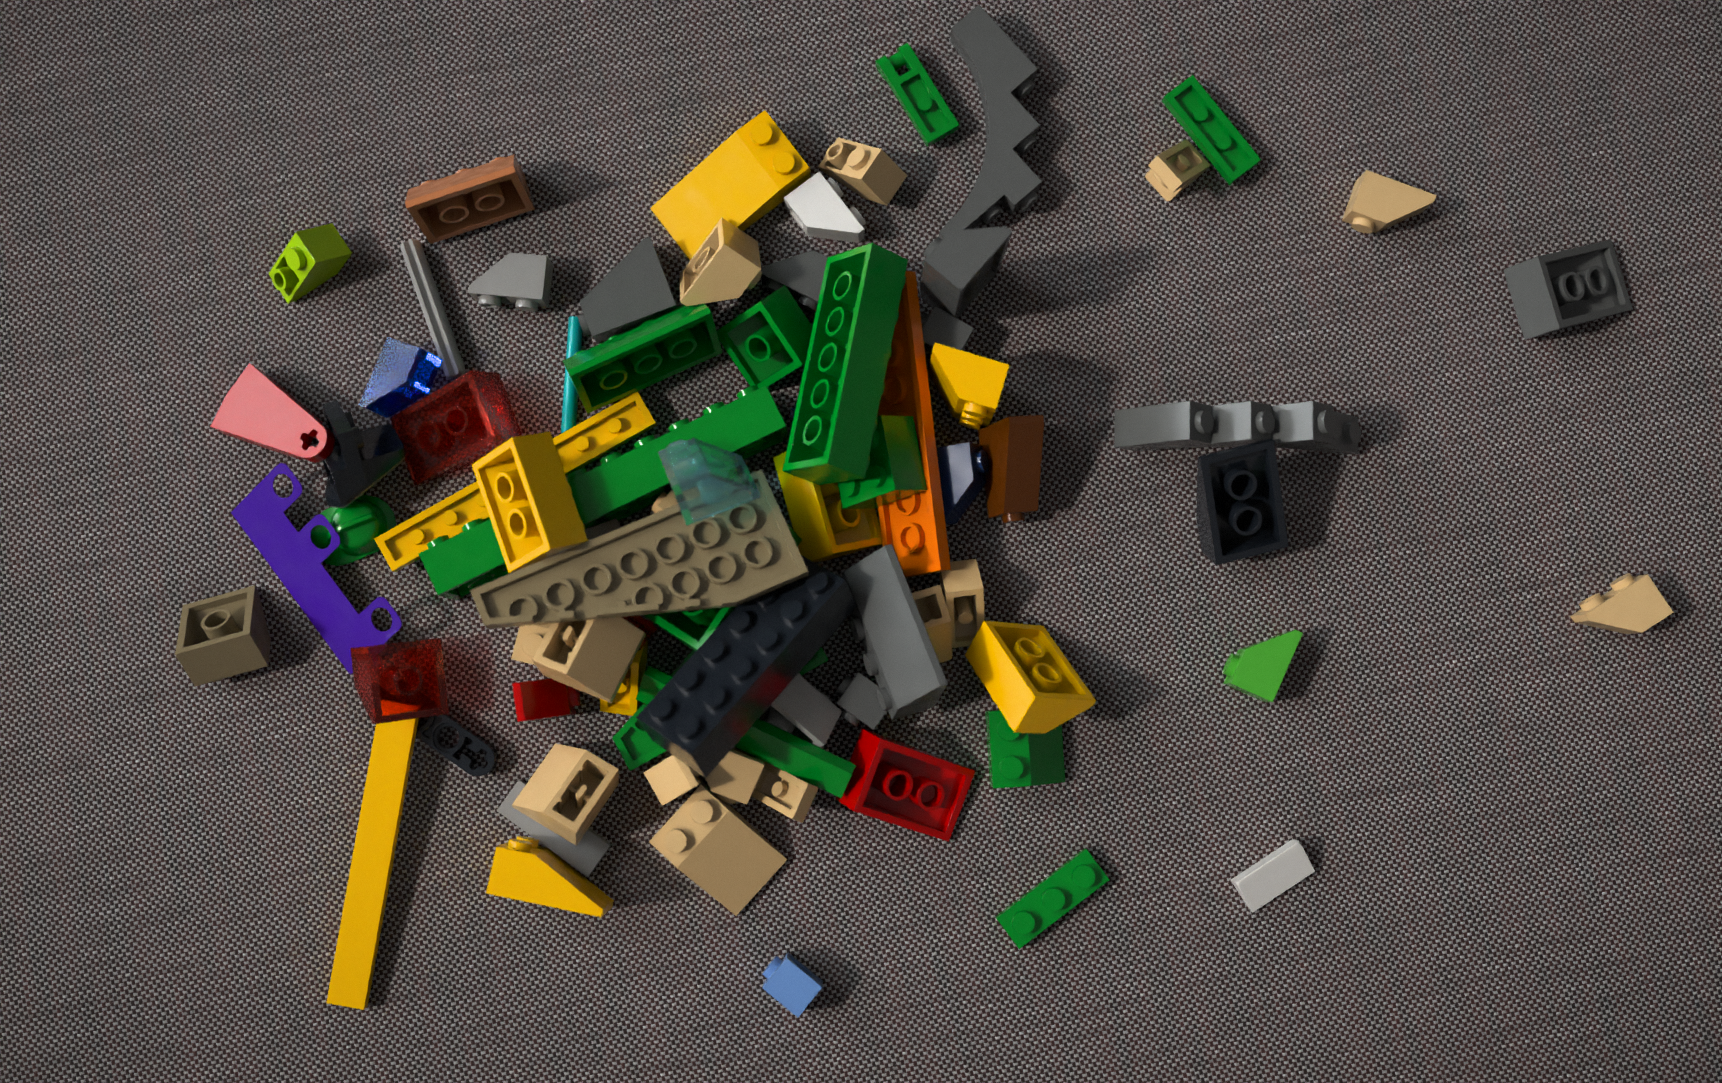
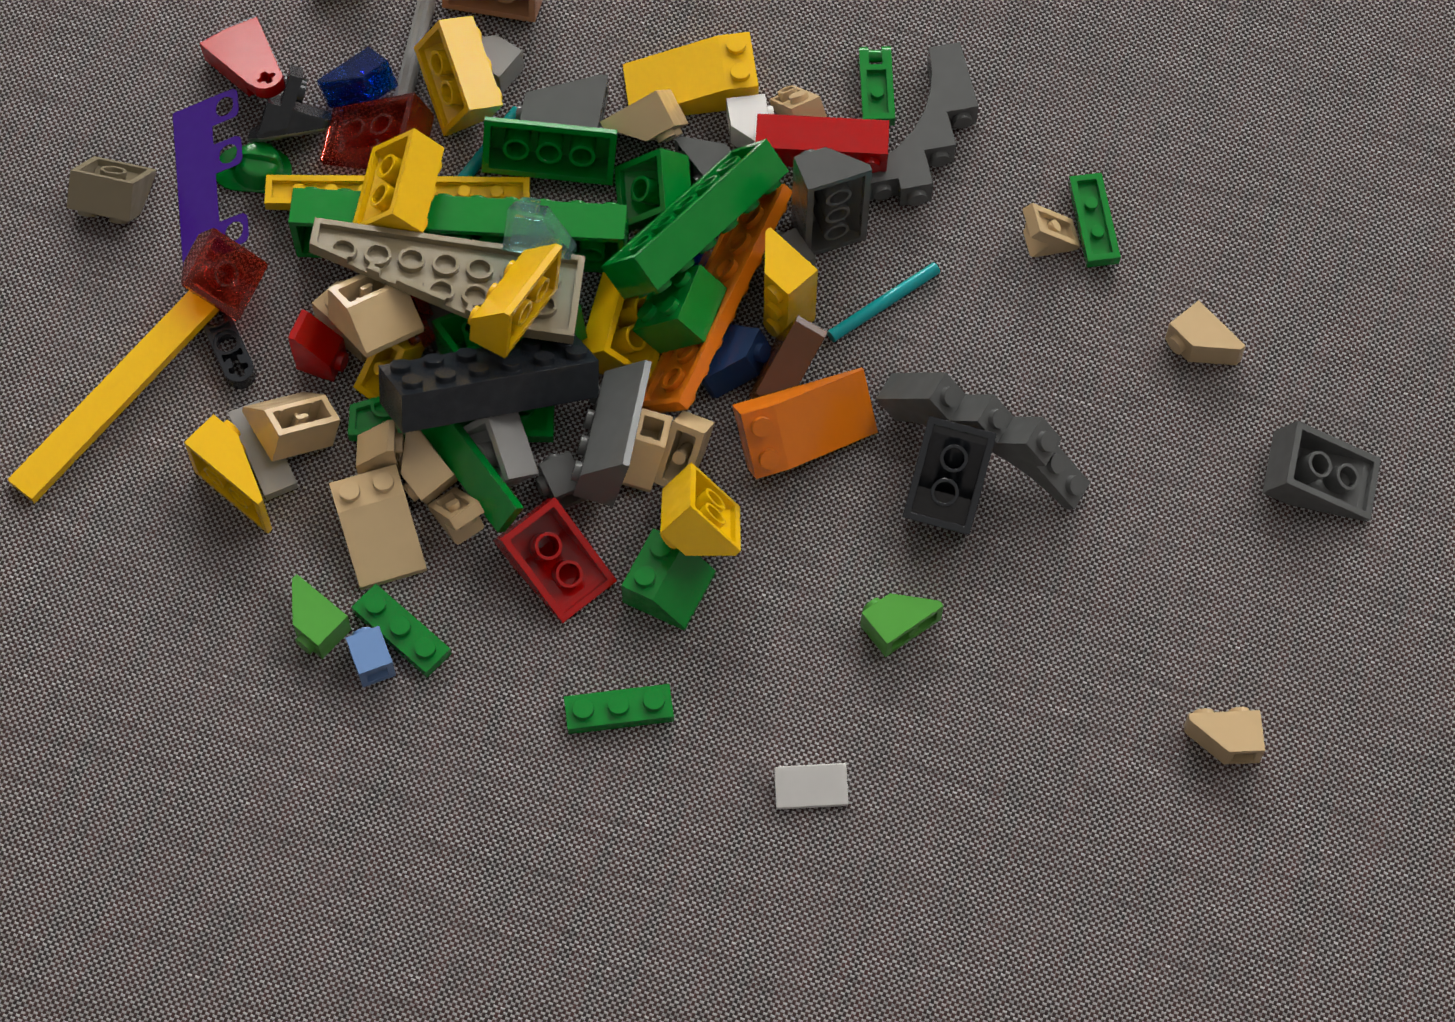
camera: 30 degrees right, 20 degrees down
(500, 321) = (458, 74): none -> yellow slope
(716, 977) = (316, 620): none -> bright green slope
(732, 574) = (516, 299): none -> yellow slope
(802, 936) = (402, 630): none -> green plate
(915, 200) = (857, 138): none -> red brick
(1057, 331) = (883, 302): none -> teal bar
(1063, 515) = (804, 422): none -> orange slope

